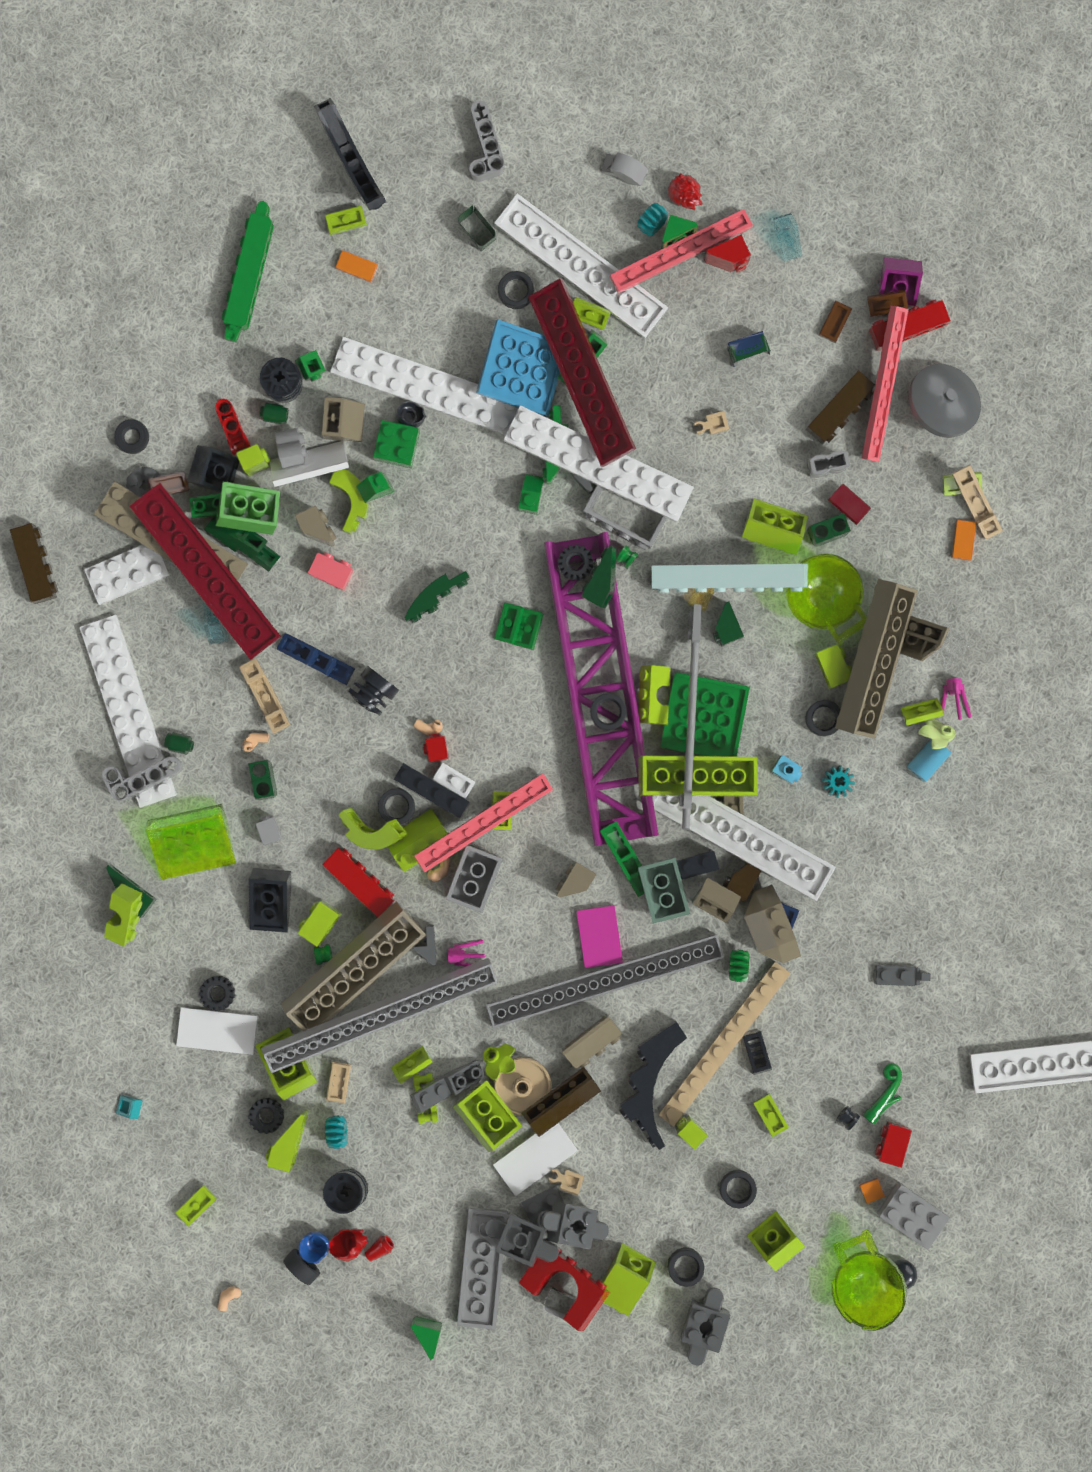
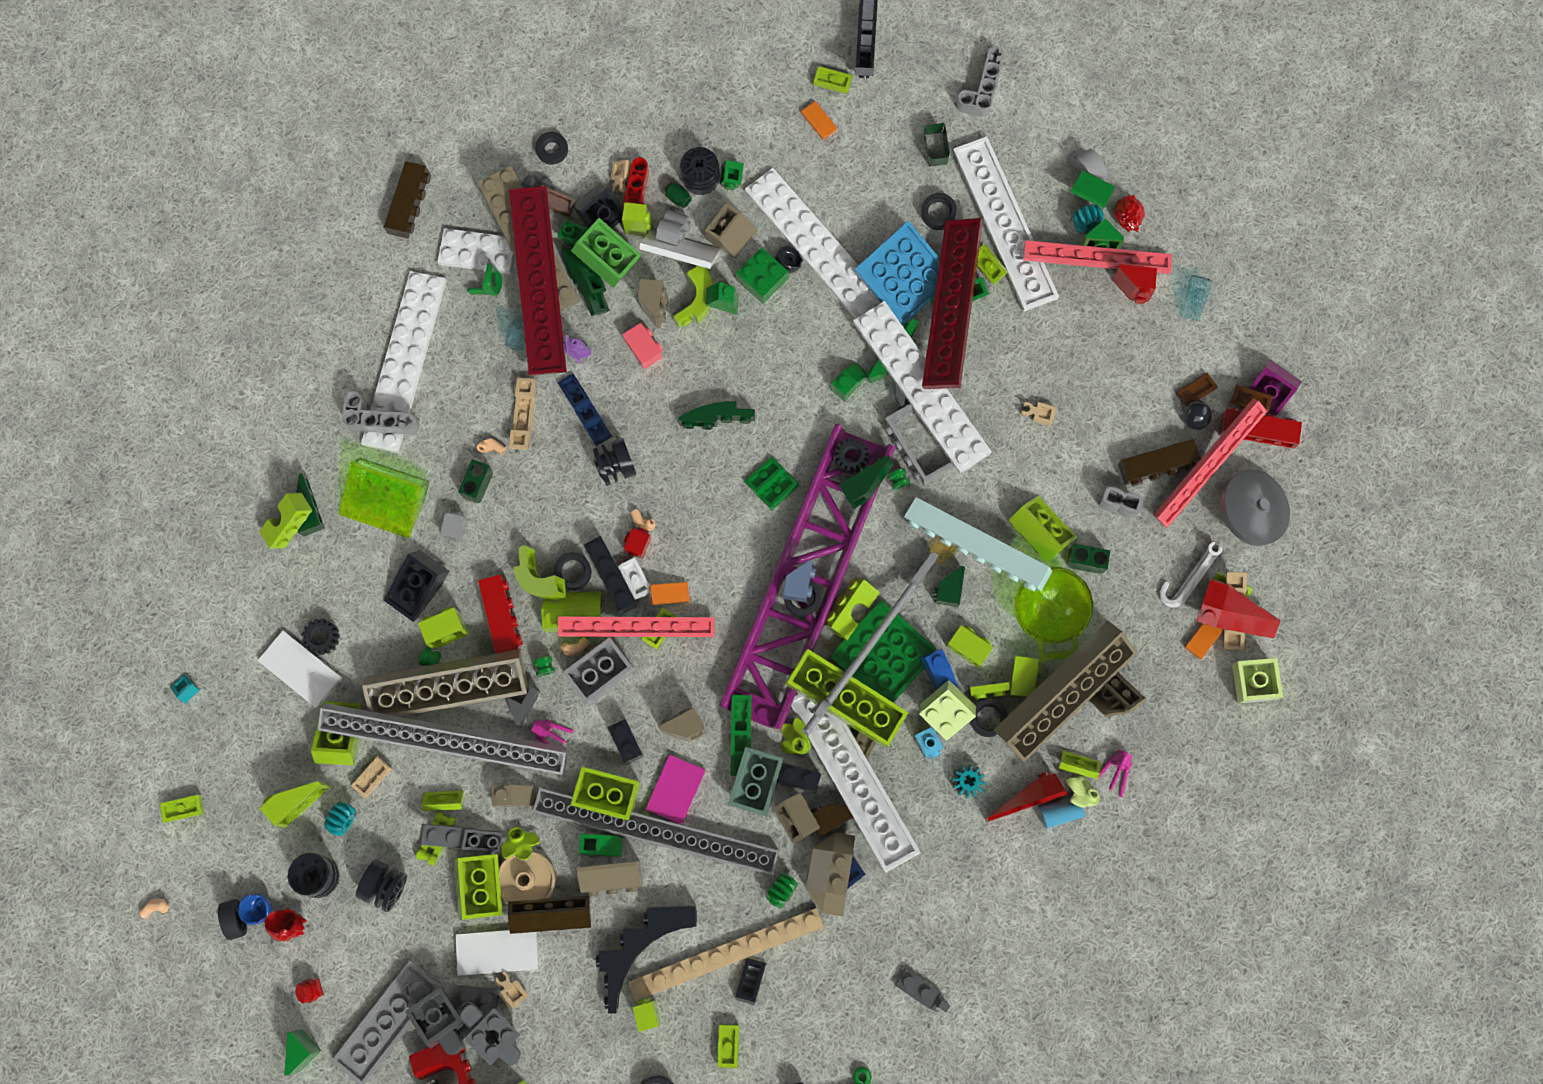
camera: 30 degrees right, 10 degrees down
(160, 600) = (488, 288): none -> green piece
(179, 743) = (427, 410): dark green brick -> none
(209, 424) = (619, 174): none -> tan plate
(248, 272) = (727, 75): green hinge -> none
(255, 1120) = (281, 762): black tyre -> none
(275, 610) = (576, 348): none -> medium lavender hinge
(380, 1247) = (310, 947): red cone -> none
(402, 1283) = (309, 990): none -> red piece
(407, 1164) = (380, 885): none -> black wheel
(424, 902) = (544, 666): none -> green wheel
(468, 1024) = (513, 795): none -> dark tan slope
(491, 775) = (669, 593): none -> orange tile
(534, 923) = (625, 742): none -> black brick
(545, 977) = (605, 793): none -> lime slope
(567, 1020) = (600, 845): none -> green slope
(599, 704) = (798, 581): none -> sand blue slope
(642, 191) = (1093, 189): none -> green slope
(672, 831) = (793, 738): none -> lime plate
(747, 347) = (1108, 365): piece -> none
(765, 708) = (938, 668): none -> blue slope
(773, 666) = (970, 646): none -> lime brick
(787, 733) = (947, 710): none -> yellowish green brick
(818, 690) = (980, 692): none -> lime plate
(848, 344) = (1197, 414): none -> black hair
(849, 504) = (1120, 547): dark red slope -> none
(902, 754) = (1039, 791): none -> red wedge
(926, 495) = (1192, 580): none -> white piece
(972, 505) = (1232, 611): none -> red wedge
(1028, 551) = (1257, 680): none -> yellowish green brick

